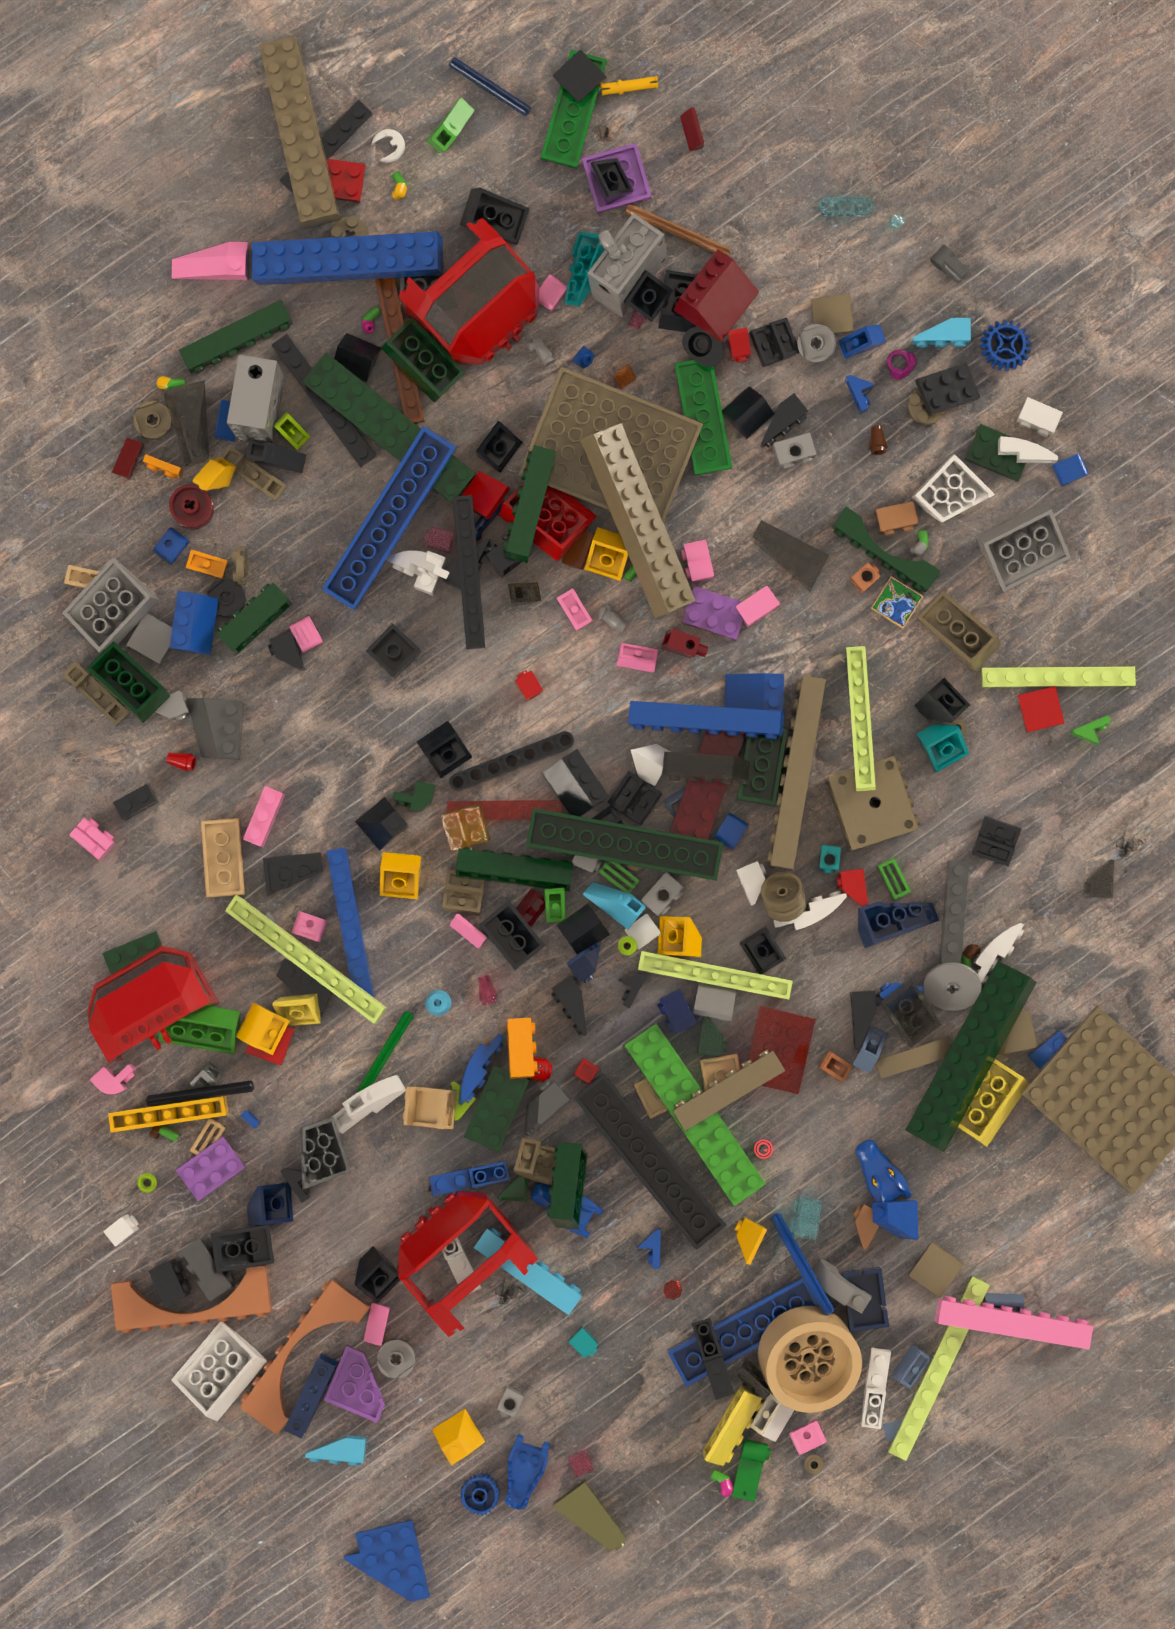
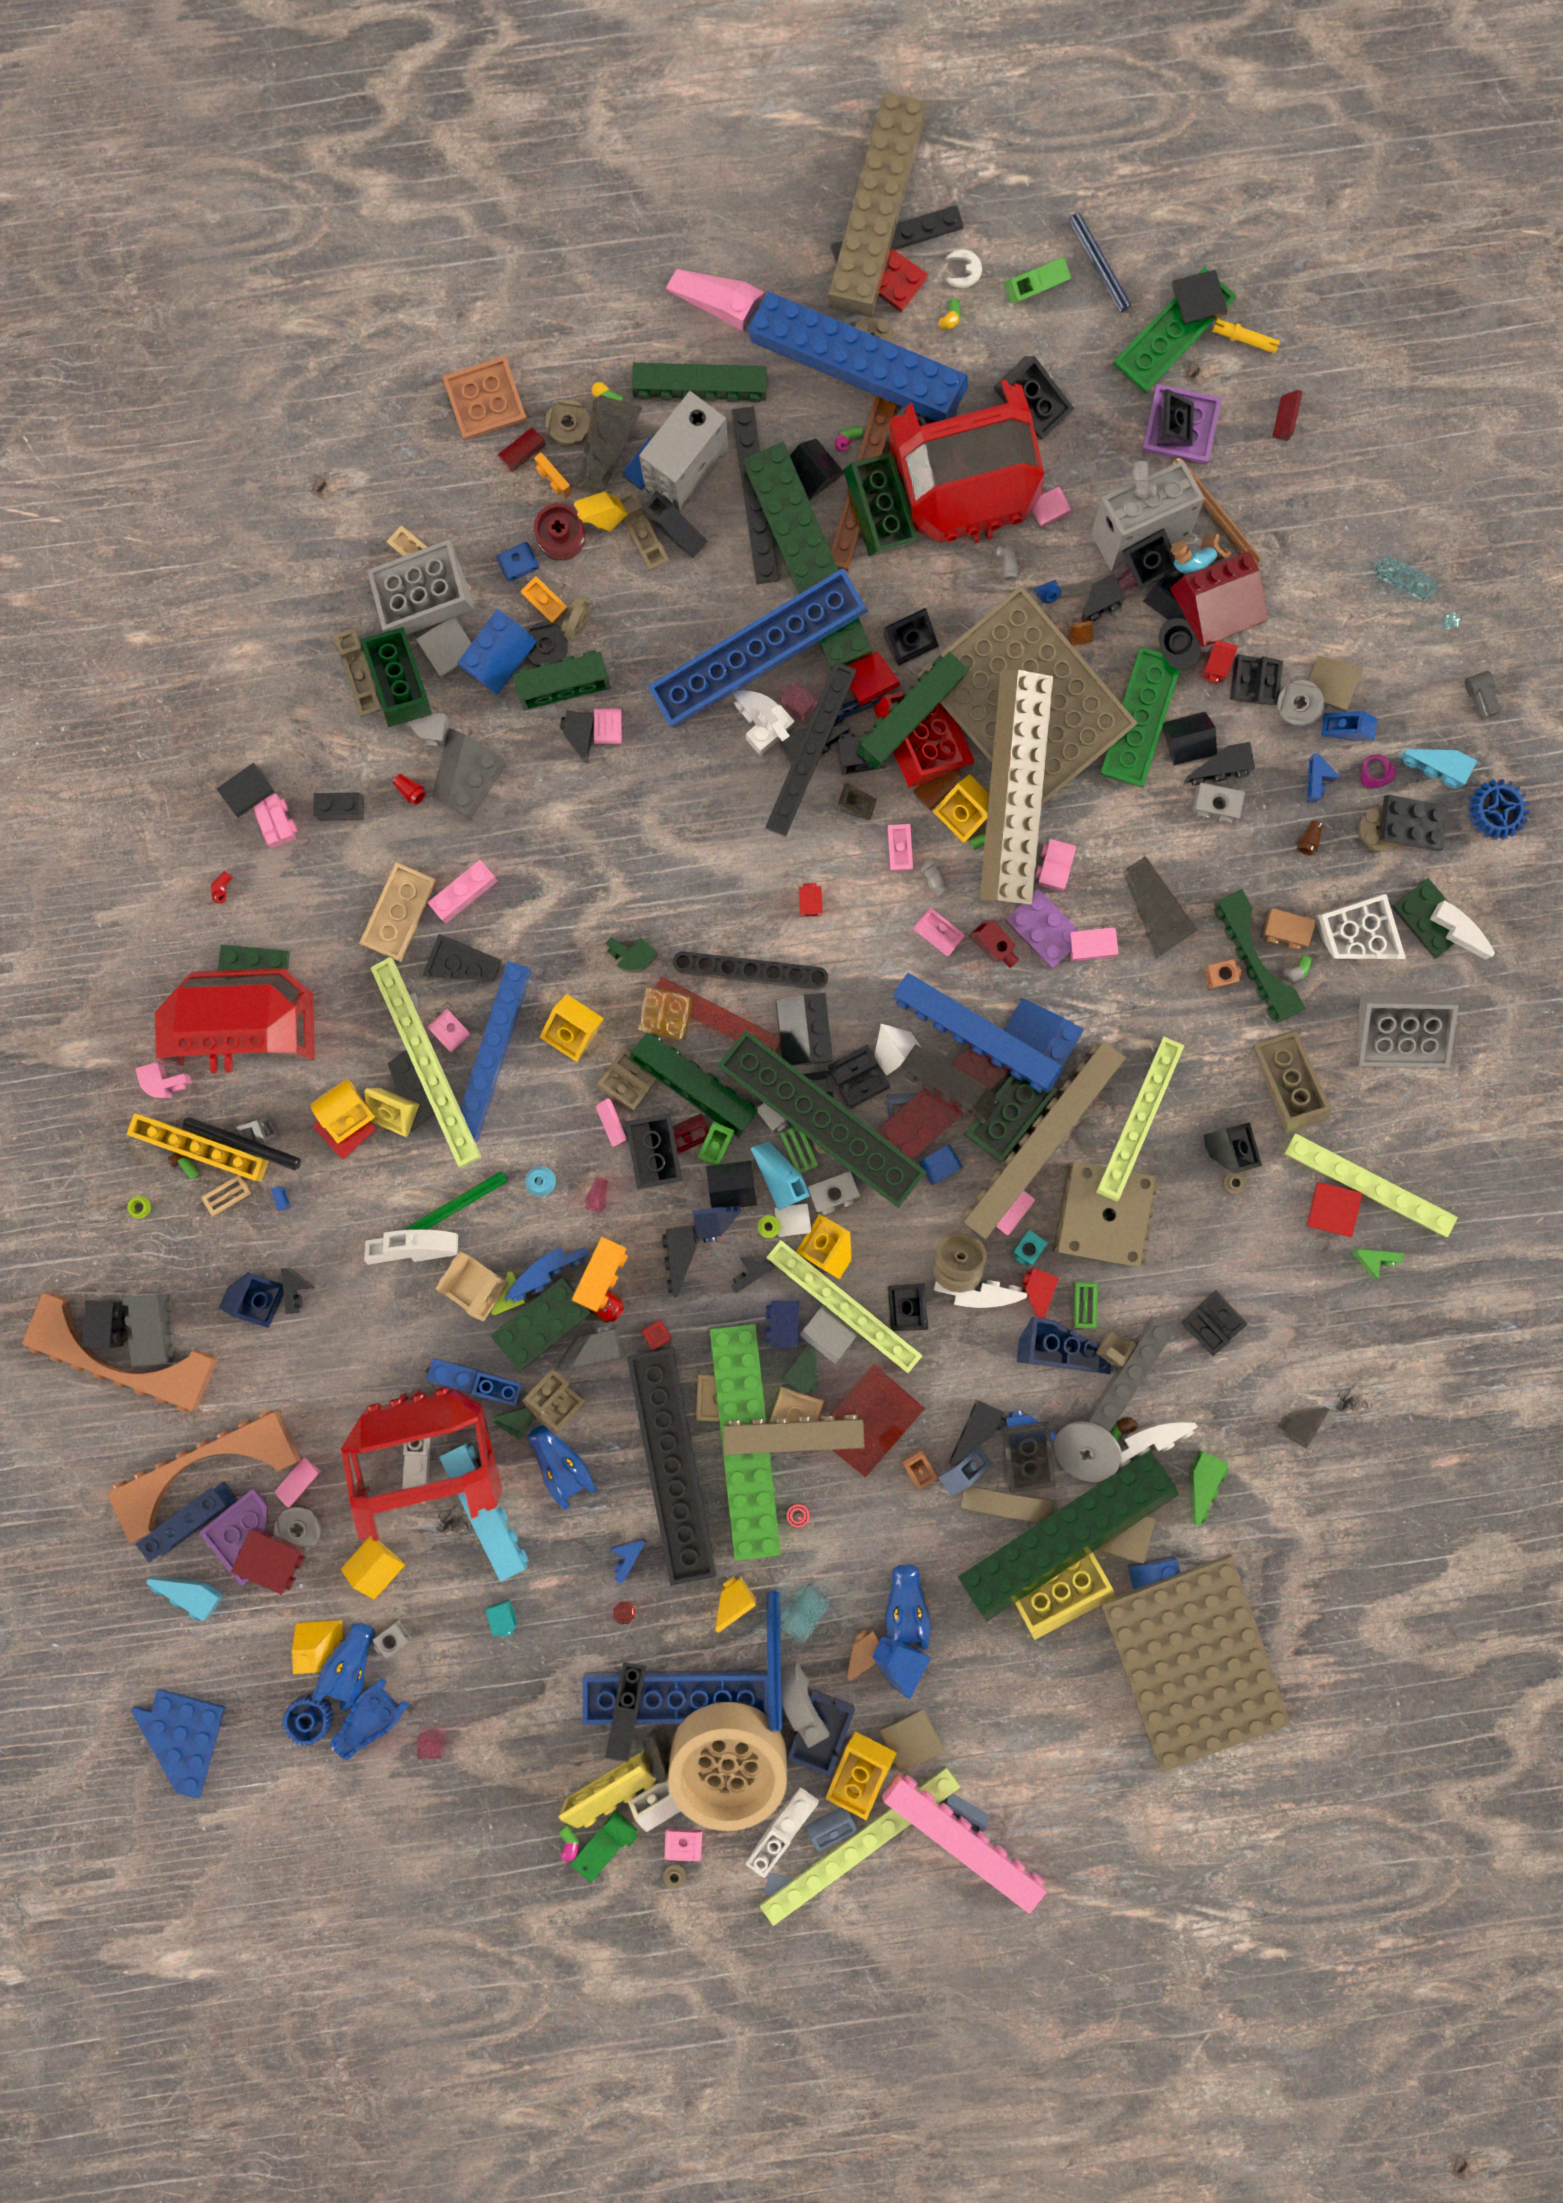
camera: 25 degrees right, 0 degrees up
(60, 827) = (246, 789): none -> black slope
(77, 911) = (218, 888): none -> red arm
(79, 434) = (484, 398): none -> nougat plate
(122, 1229) = (84, 1242): white brick -> none
(206, 1029) = (283, 1079): bright green slope -> none
(210, 1168) = (212, 1227): medium lavender plate -> none
(219, 1371) = (106, 1444): white slope -> none
(242, 1248) = (198, 1328): black slope -> none
(291, 431) = (704, 508): lime slope -> none
(321, 1153) = (332, 1273): dark grey wedge -> none
(375, 1274) = (322, 1430): black slope -> none
(382, 823) = (581, 964): black slope -> none
(388, 1391) = (269, 1560): none -> dark red brick
(393, 651) = (689, 790): black brick -> none
(444, 749) = (687, 920): black slope -> none
(467, 1357) = (372, 1568): none -> yellow slope
(487, 1443) = (345, 1670): none -> blue animal
(568, 1185) = (571, 1445): dark green brick -> none
(585, 252) = (1109, 479): teal wedge -> none
(589, 1514) = (411, 1803): olive slope -> none
(626, 340) = (1103, 597): none -> black slope
(679, 282) = (1190, 561): none -> piece
(751, 880) = (935, 1227): white slope -> none
(805, 838) = (1015, 1213): none -> bright pink slope
(896, 602) = (1241, 1018): tile -> none
(911, 1315) = (860, 1775): none -> yellow slope
(933, 899) = (1115, 1349): none -> dark tan panel
(942, 745) = (1211, 1192): teal slope -> none
(1039, 417) = (1494, 903): white brick -> none
(1049, 959) = (1204, 1479): none -> bright green slope
(1070, 469) = (1497, 975): blue piece -> none

